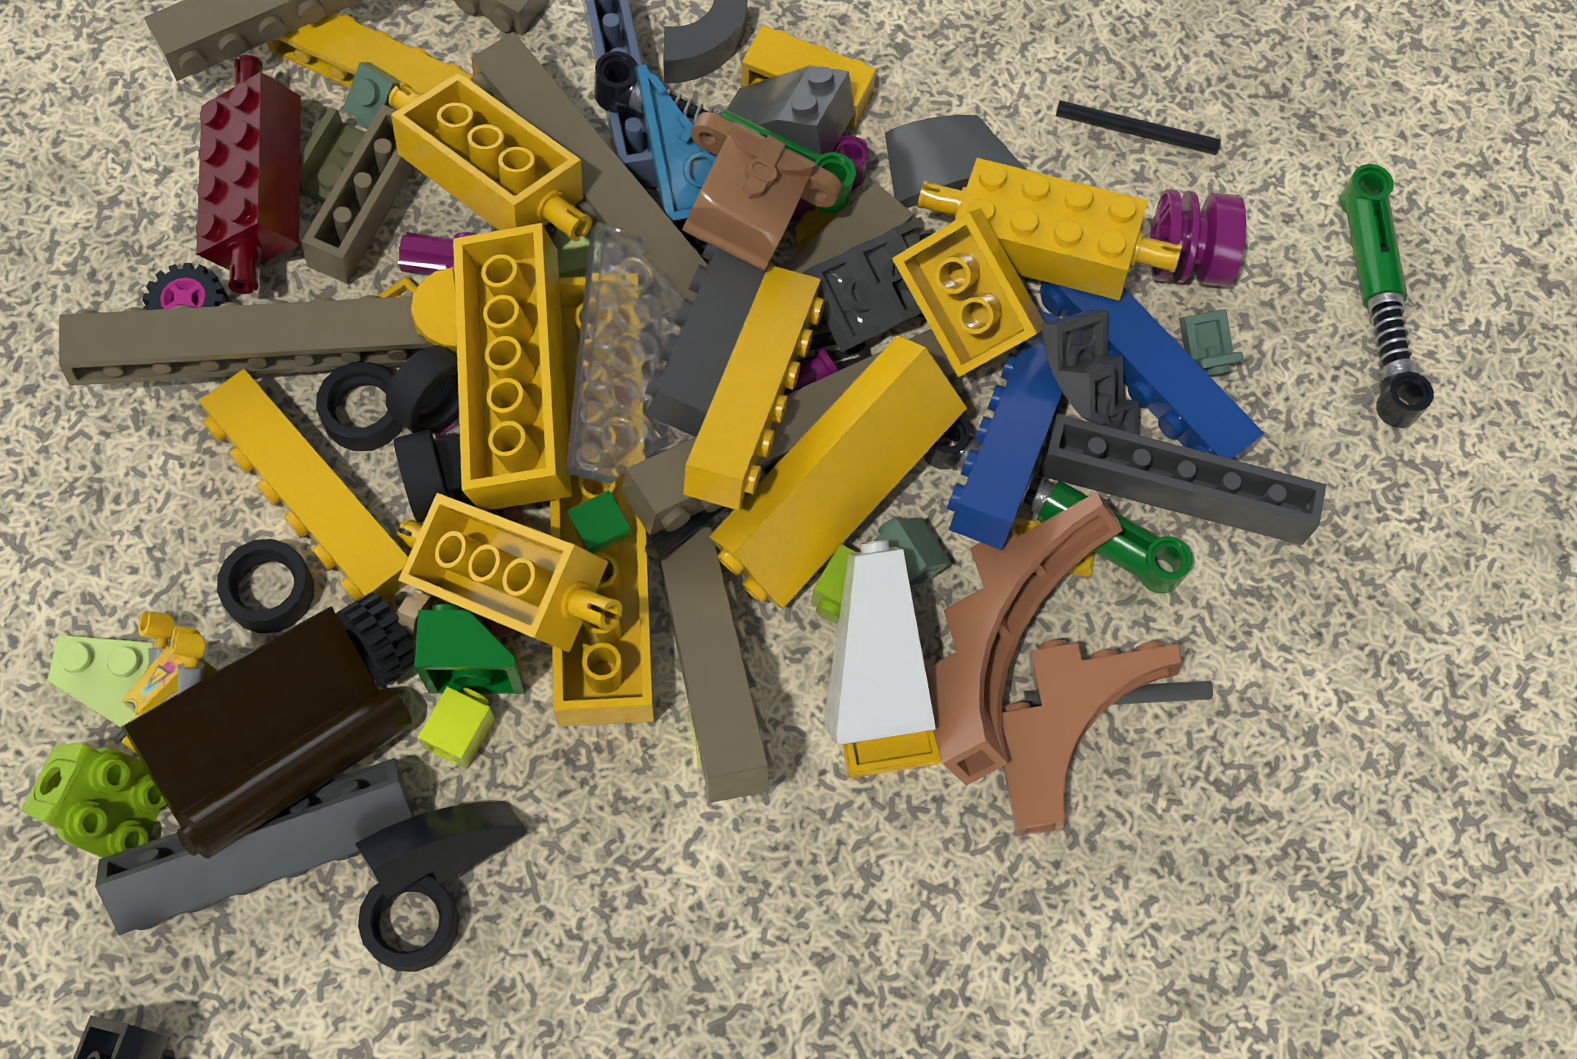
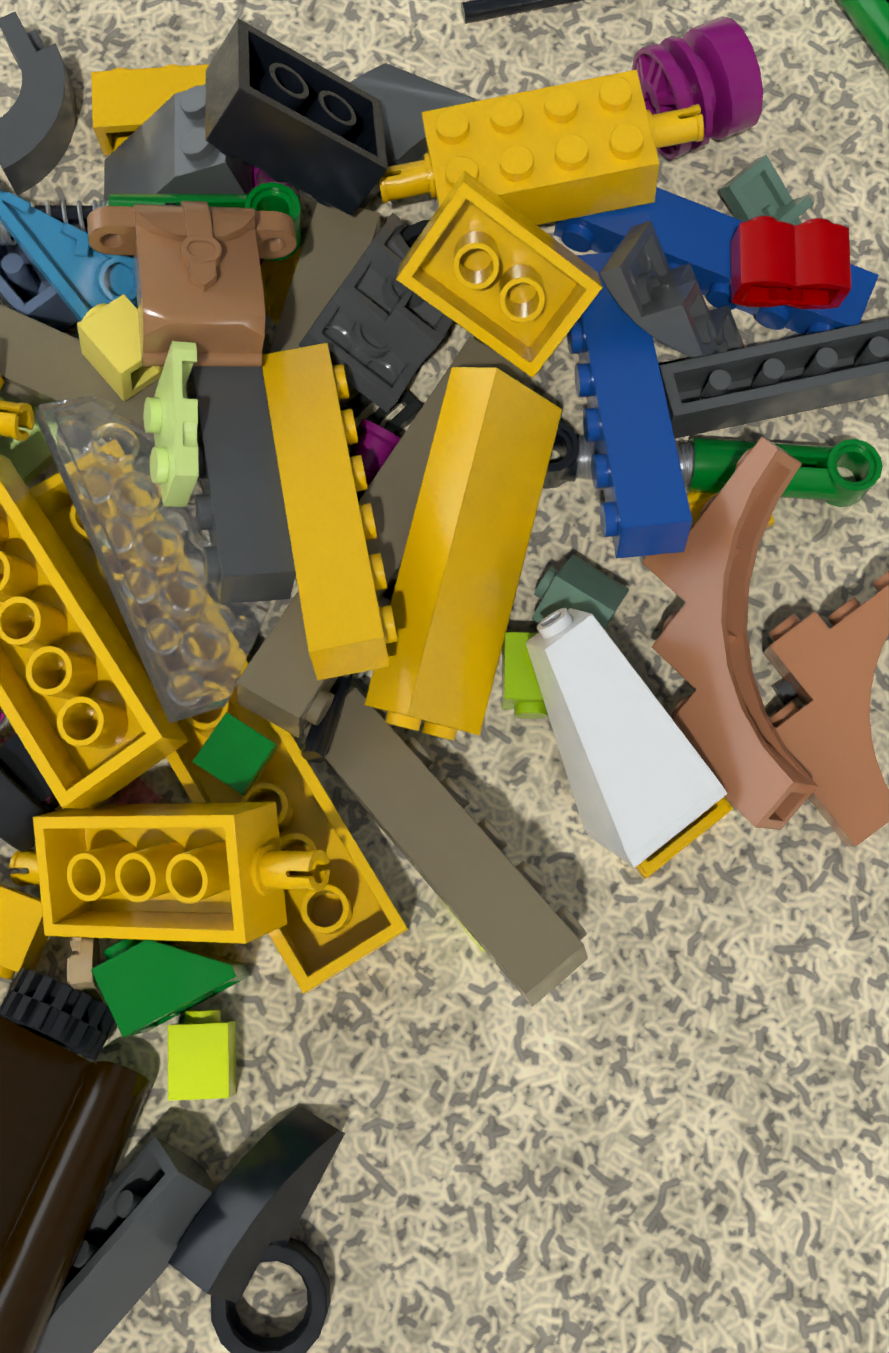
camera: 25 degrees left, 10 degrees up
(668, 211) = (112, 346): none -> light yellow brick
(681, 277) = (174, 426): none -> yellowish green wing
(881, 120) = (294, 119): none -> black brick
(1195, 390) = (790, 264): none -> red brick

